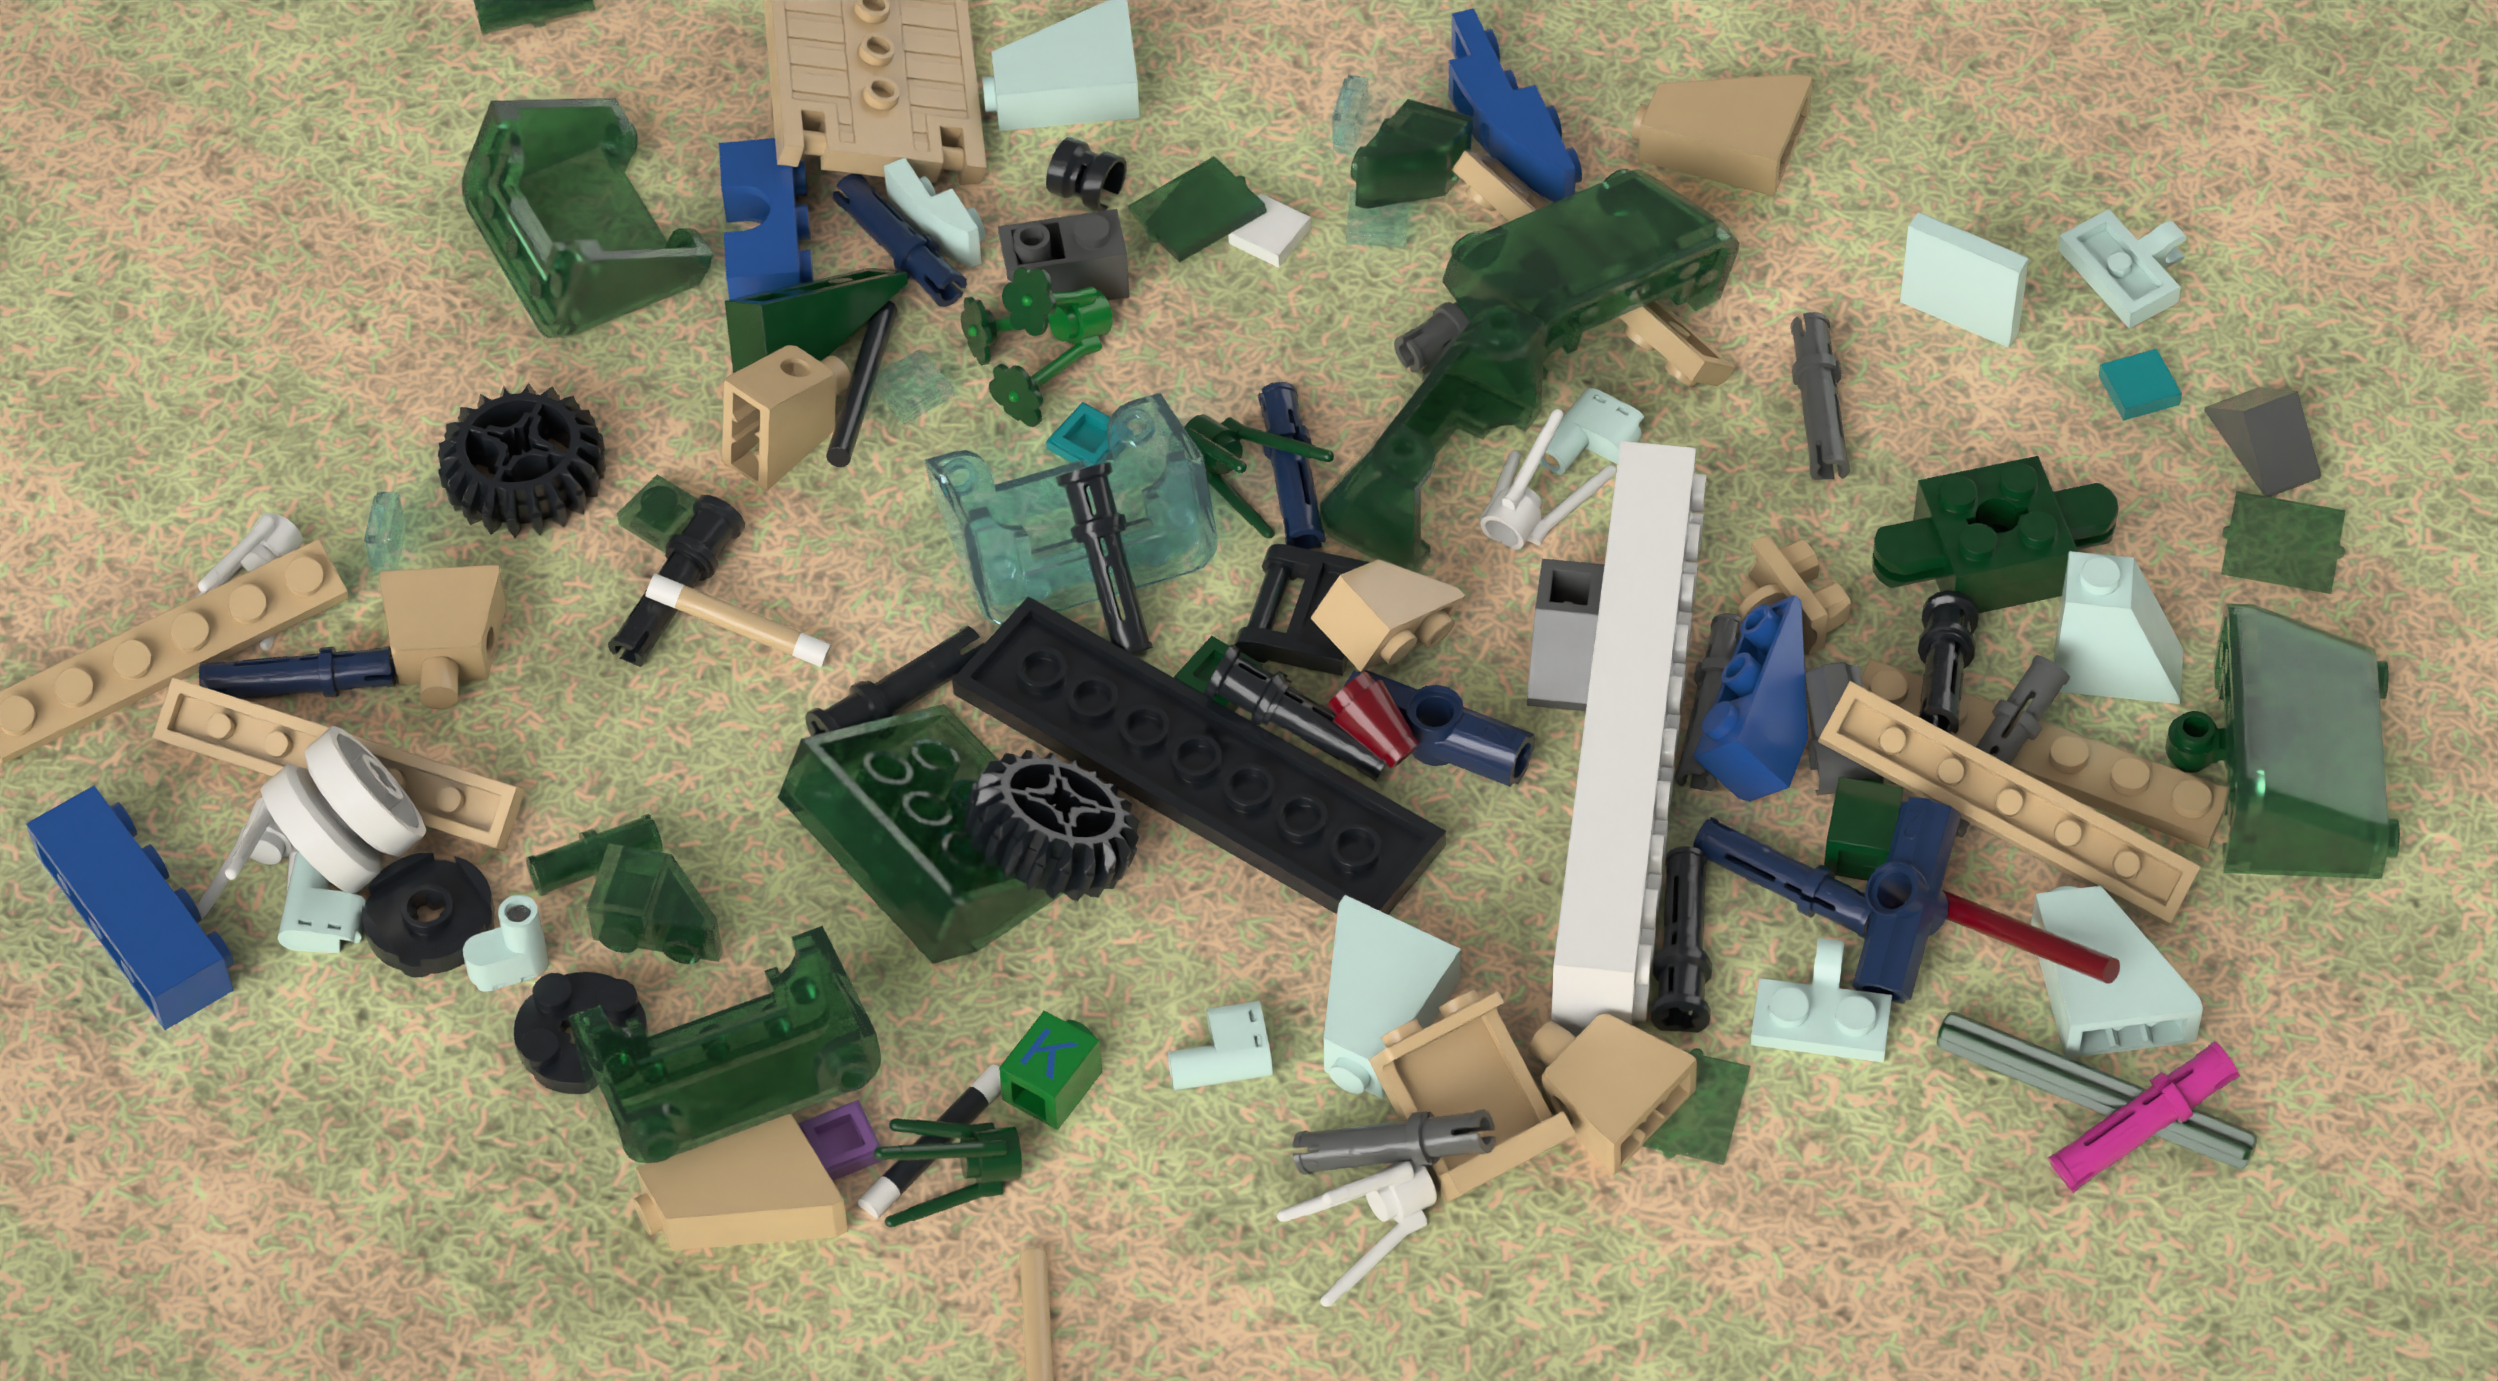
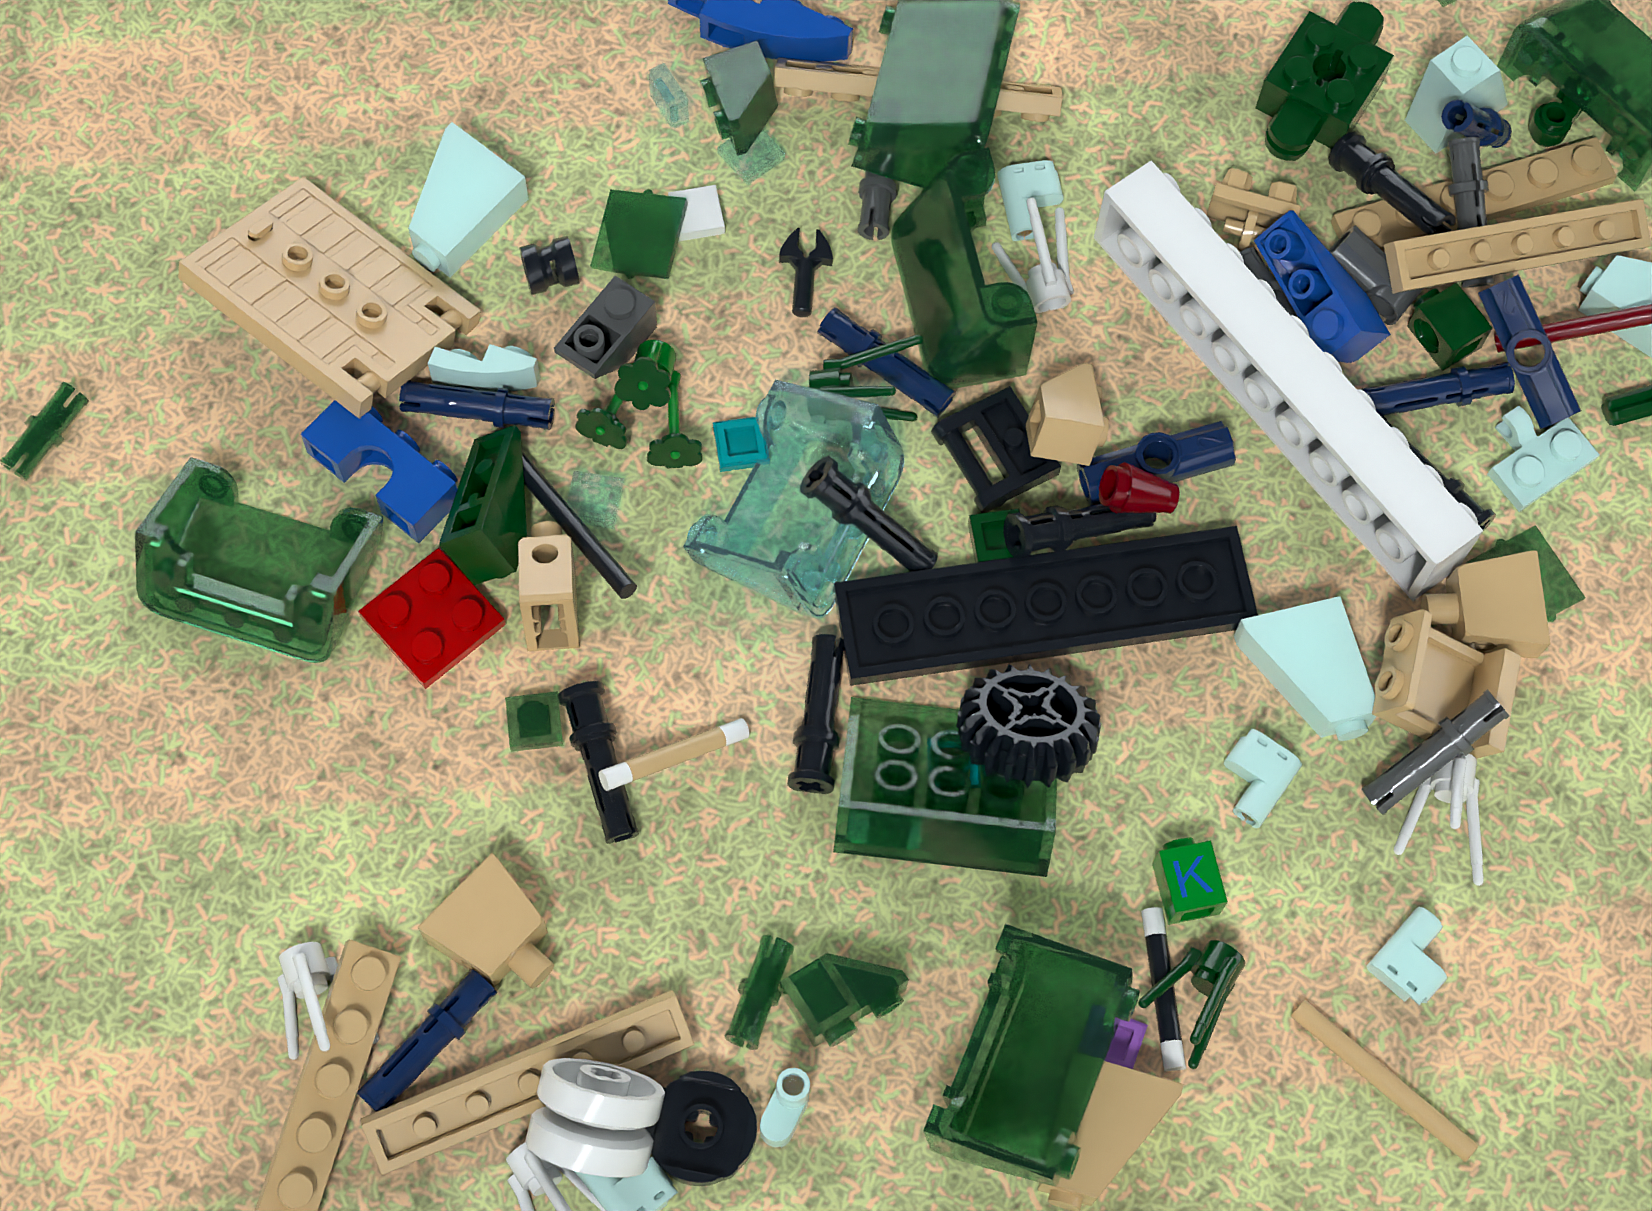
camera: 50 degrees left, 15 degrees up
(385, 532) = (377, 893): clear light blue tile -> none
(530, 474) = (389, 771): black gear -> none
(545, 1015) = (849, 1113): black plate -> none
(668, 374) = (432, 618): none -> red plate
(1168, 1294) = (1404, 965): none -> light aqua piece
(1315, 342) = (805, 269): none -> black bar
(1564, 634) = (1169, 340): slope -> none
(1817, 379) = (1129, 68): dark grey pin -> none
(2097, 678) = (1477, 123): none -> dark blue pin

